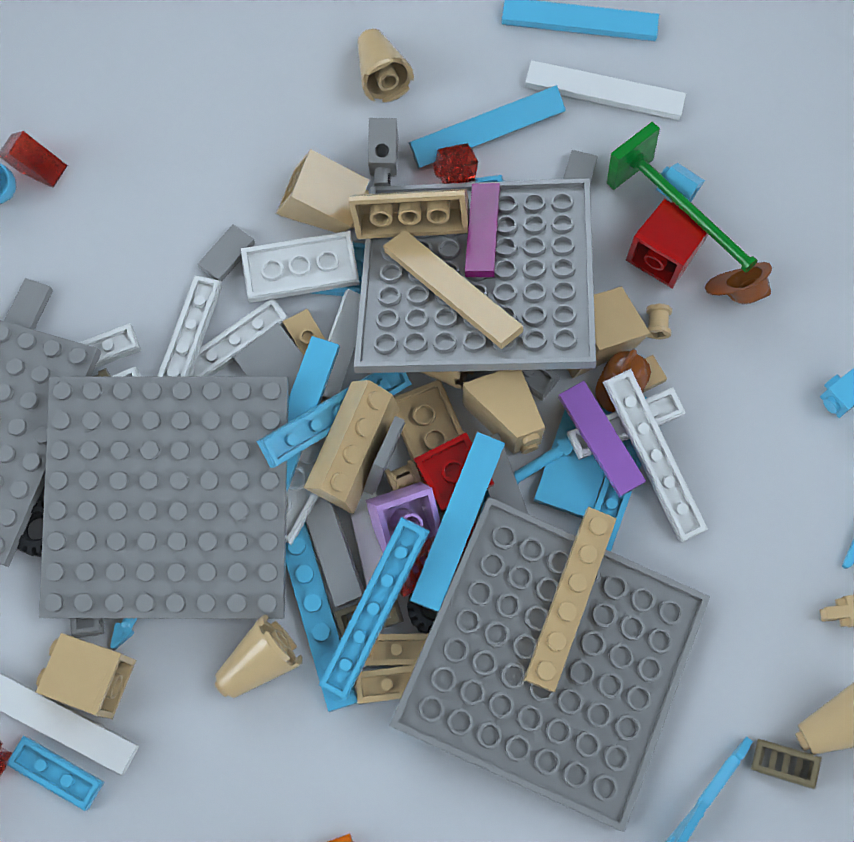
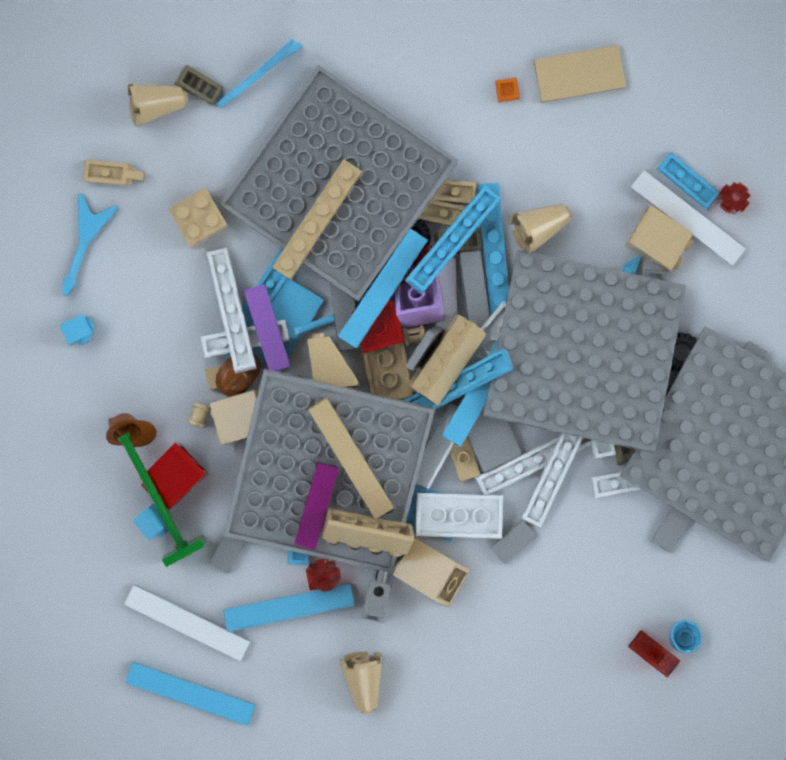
camera: 170 degrees left, 15 degrees up
(733, 571) = (198, 218): none -> tan brick

